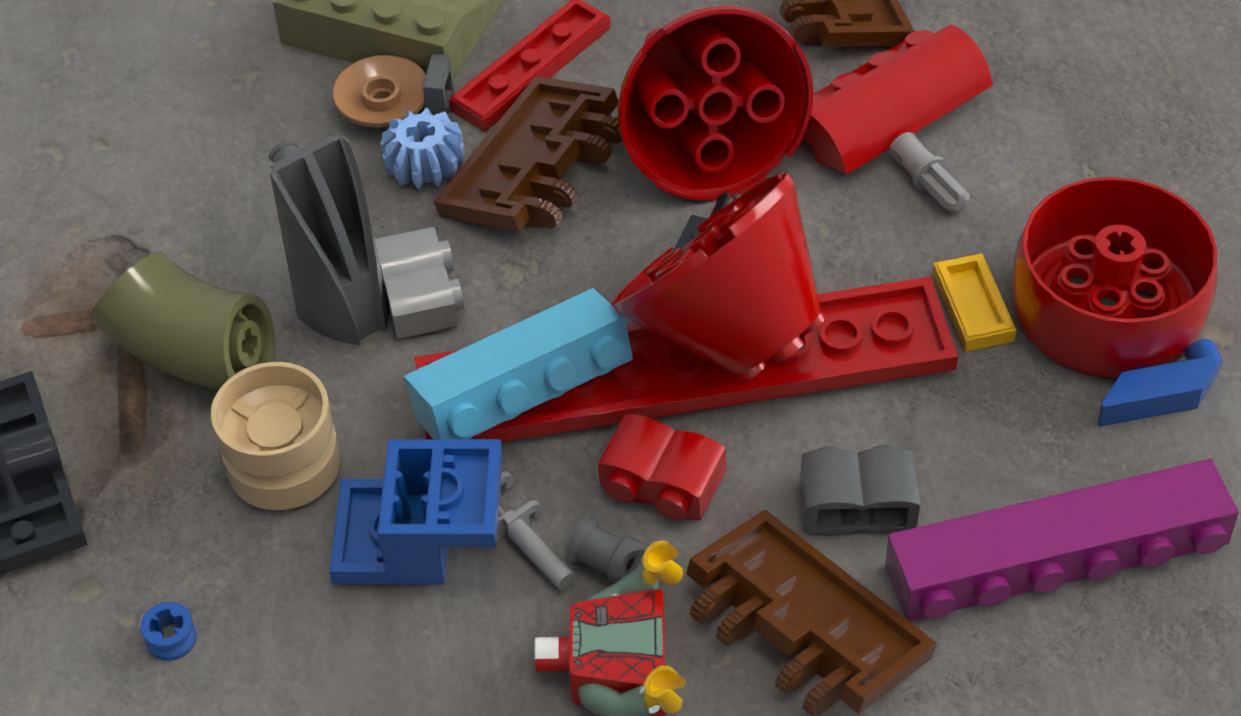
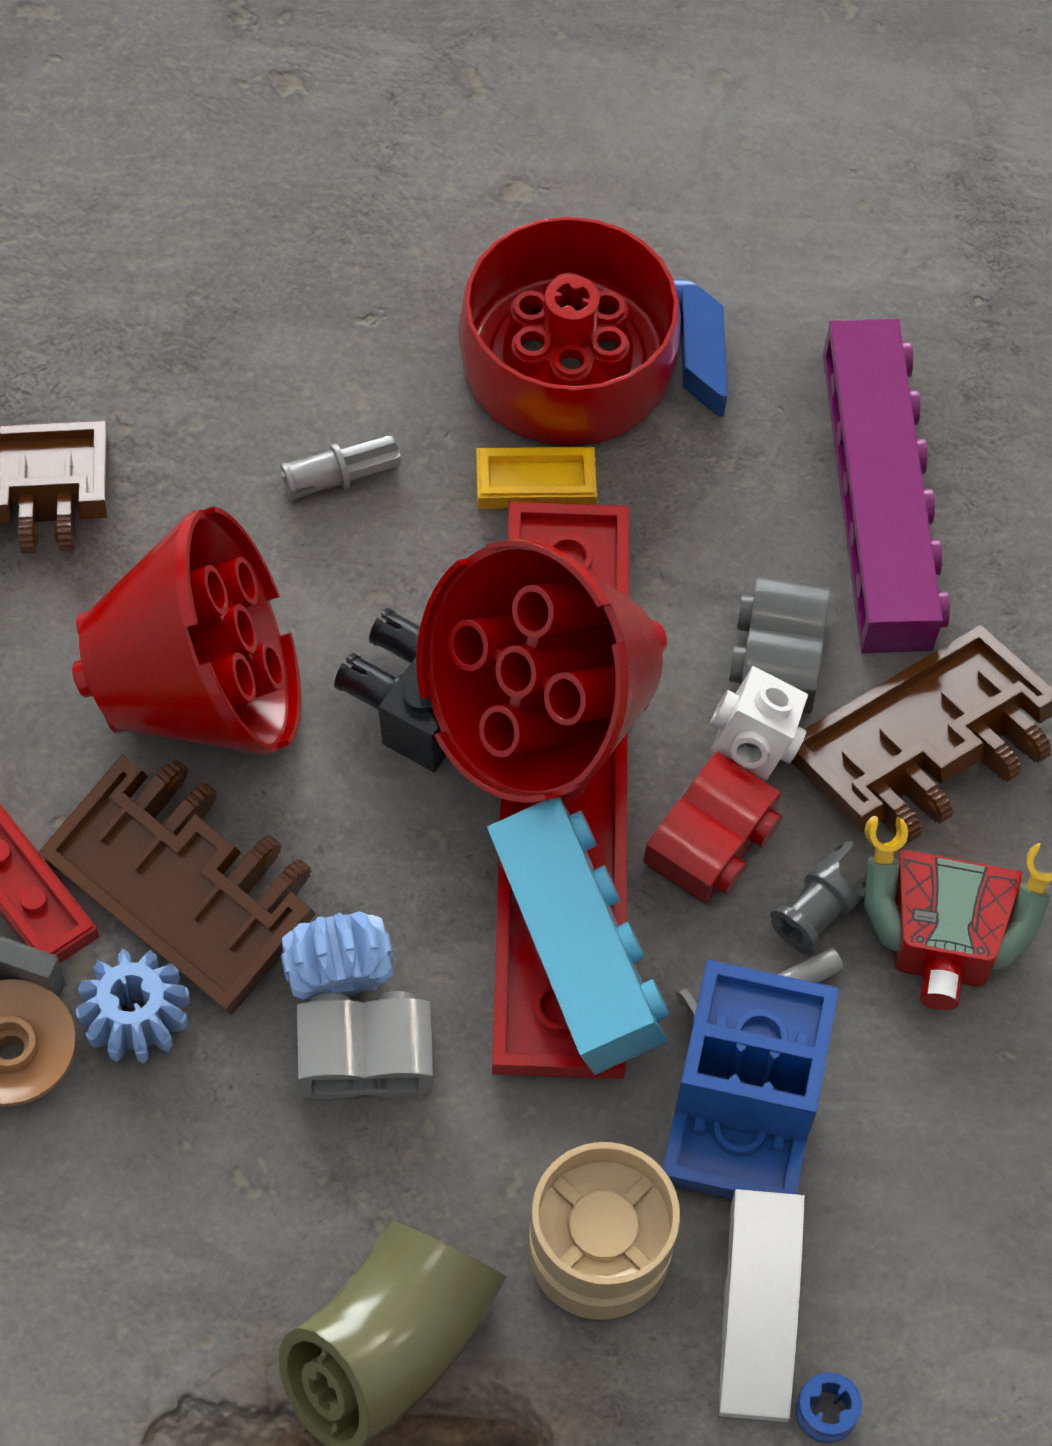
camera: 85 degrees left, 10 degrees up
(246, 563) = (761, 1305): none -> white slope
(329, 239) = (349, 1113): dark grey piece -> none
(478, 242) = (337, 955): none -> light blue gear
(761, 472) = (760, 723): none -> white brick
(894, 96) = (203, 452): red brick -> none

